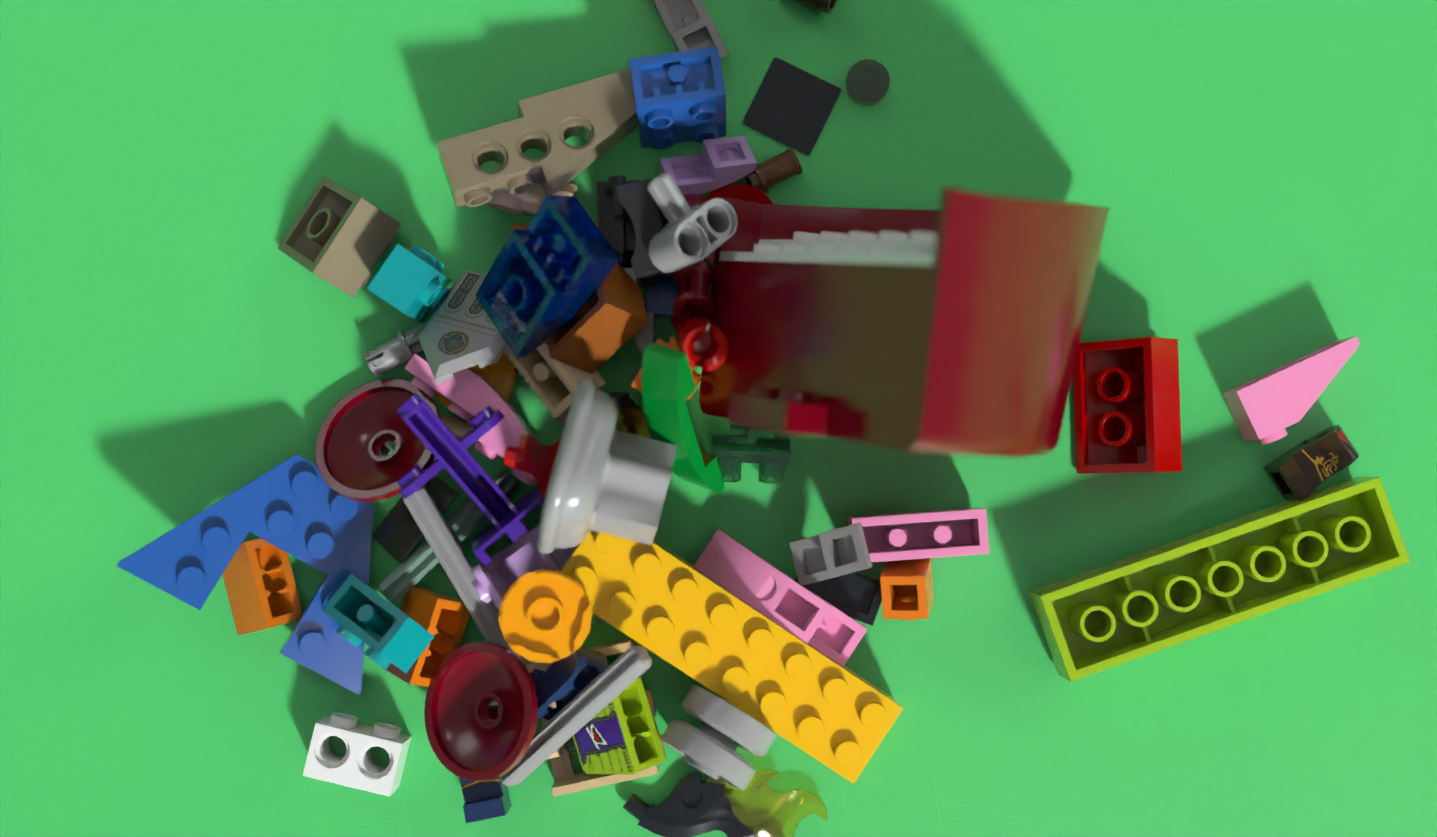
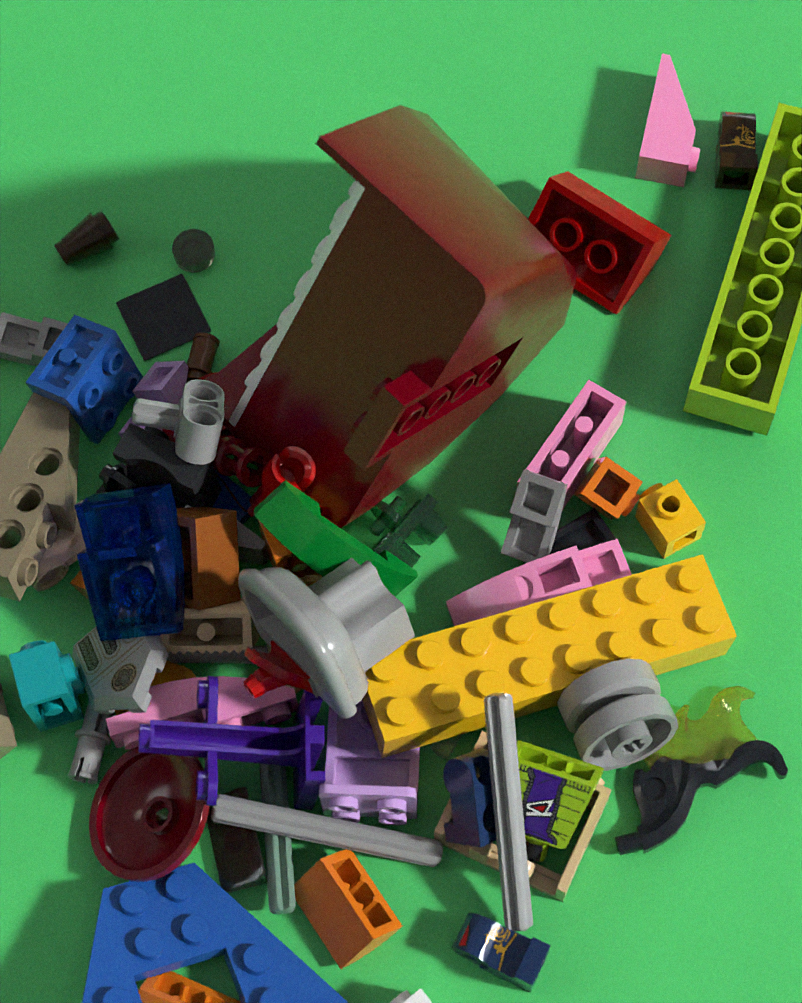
camera: 50 degrees left, 20 degrees down
(378, 623) = (301, 920): teal brick -> none
(464, 713) = (418, 895): dark red dish -> none
(545, 615) = (404, 757): light orange tile -> none
(923, 651) = (669, 517): none -> yellow brick

